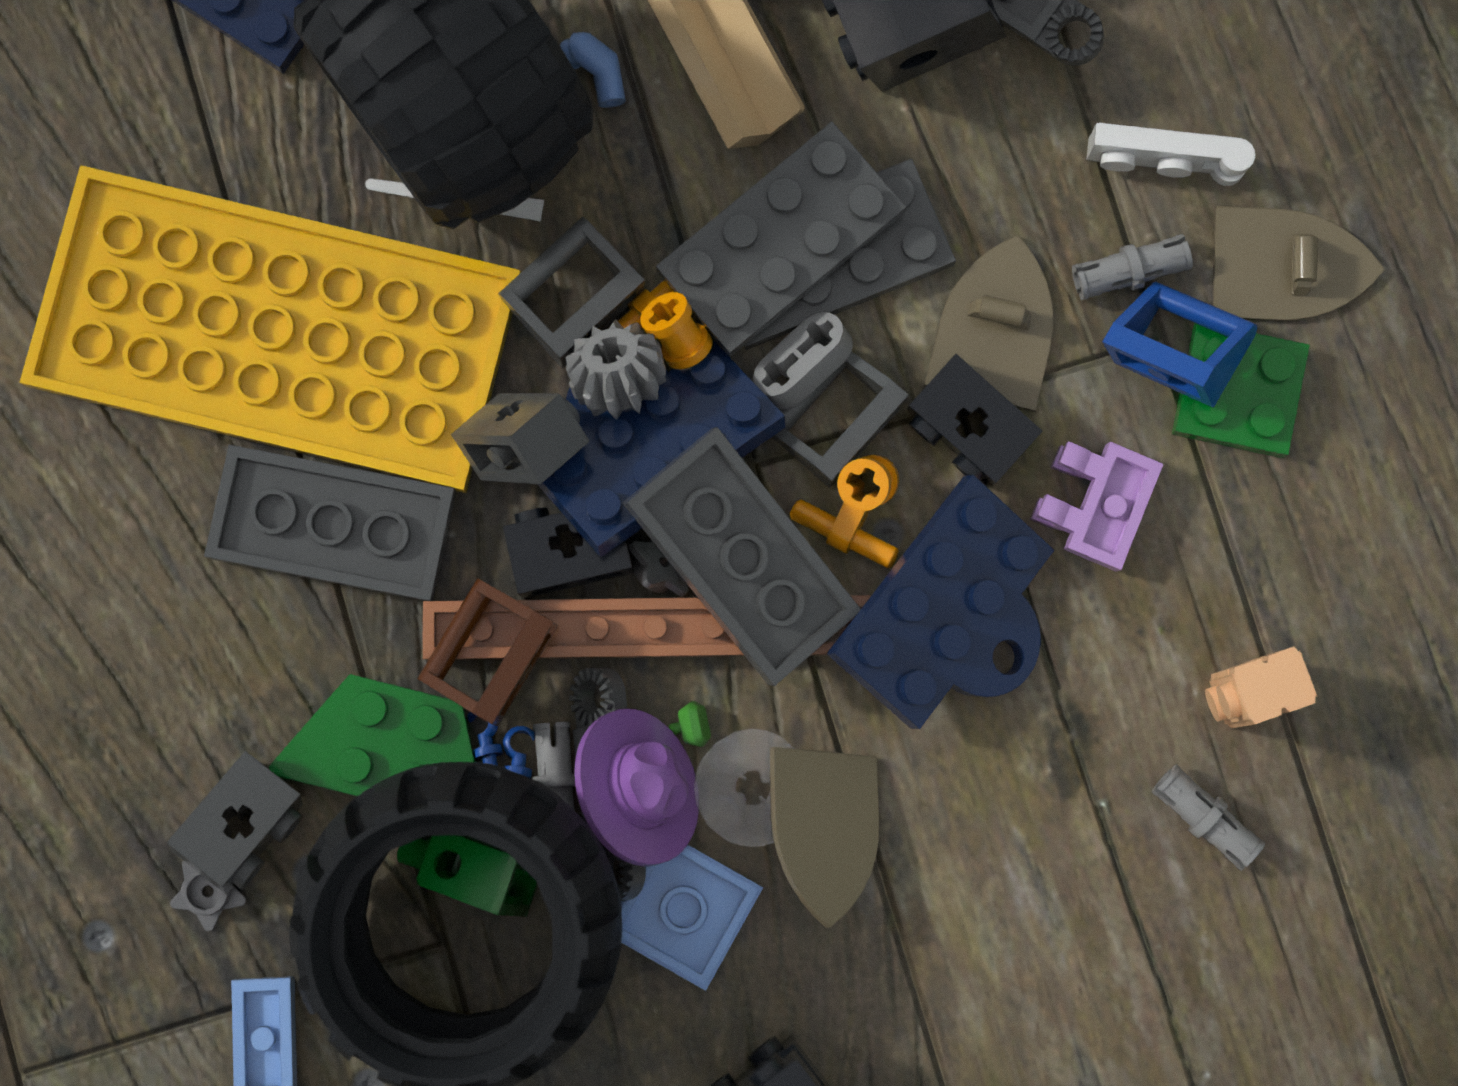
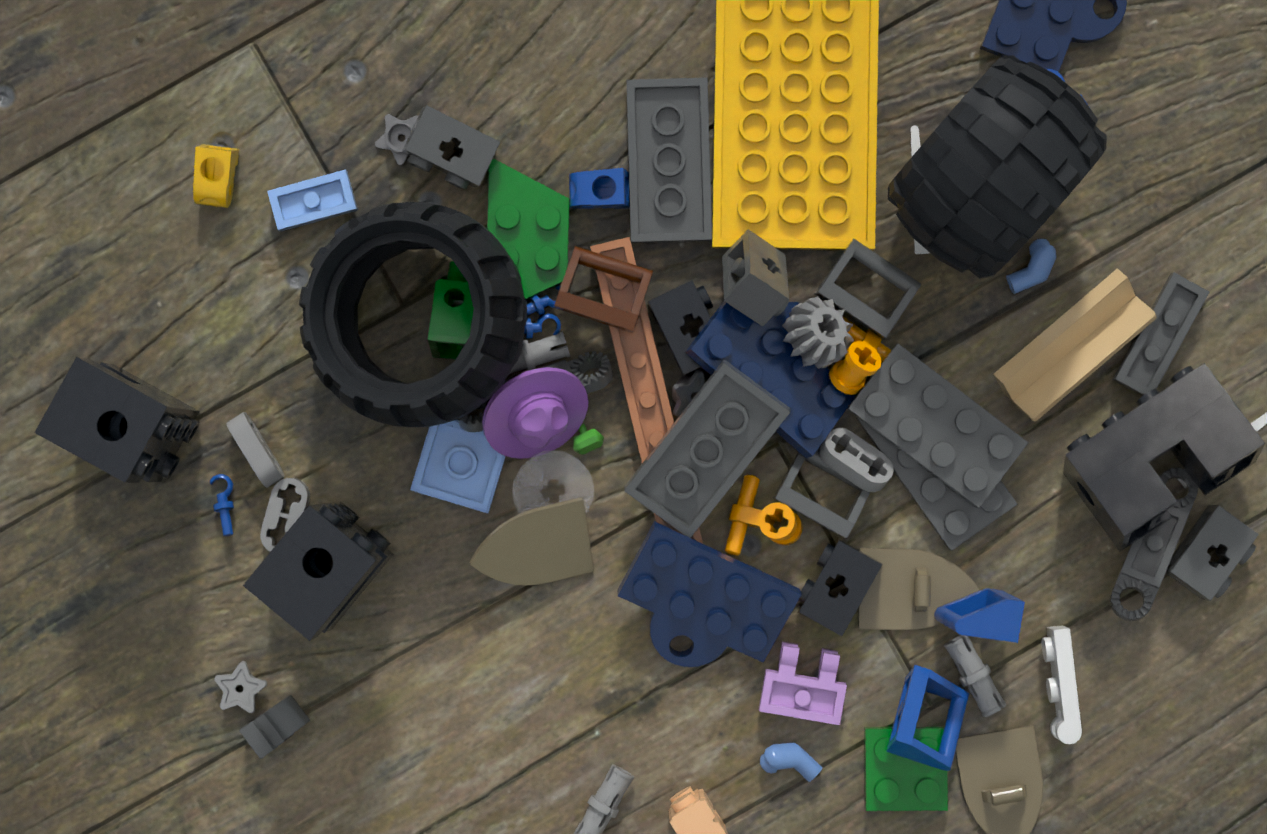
camera: 75 degrees right, 5 degrees up
(346, 628) = (599, 189): none -> blue leg
(1055, 231) = (984, 615): none -> blue tile
(1190, 544) = (789, 756): none -> medium blue arm

